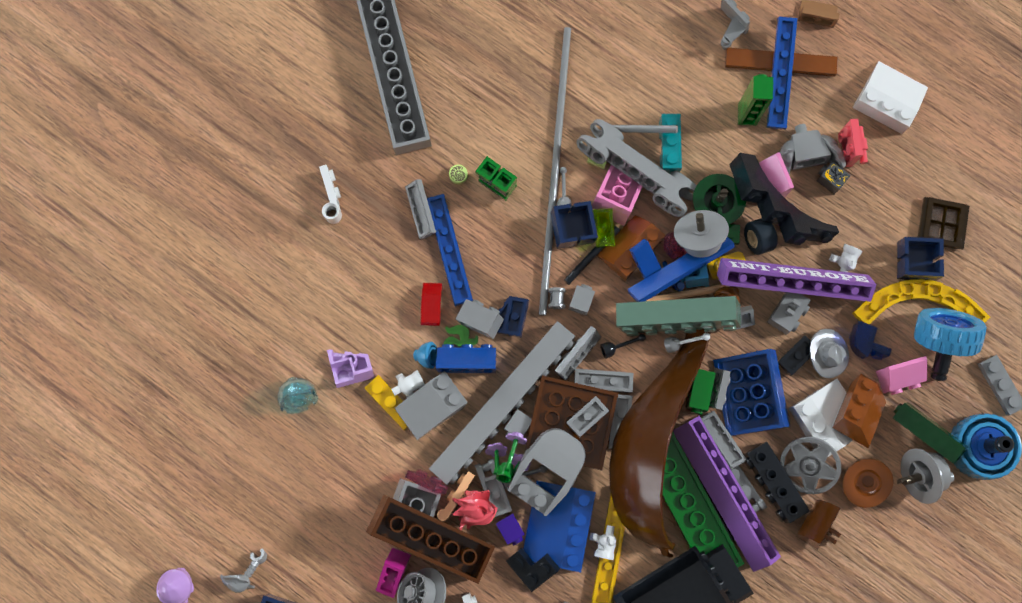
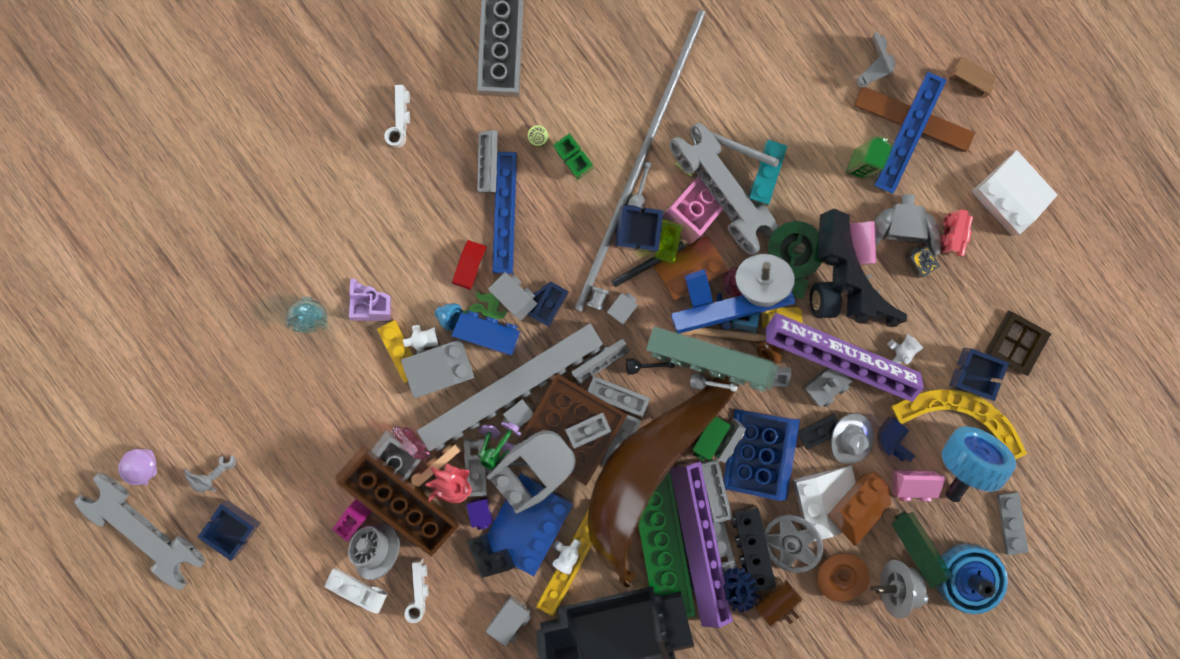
camera: 15 degrees right, 10 degrees up
(777, 523) = (740, 589): none -> dark blue gear

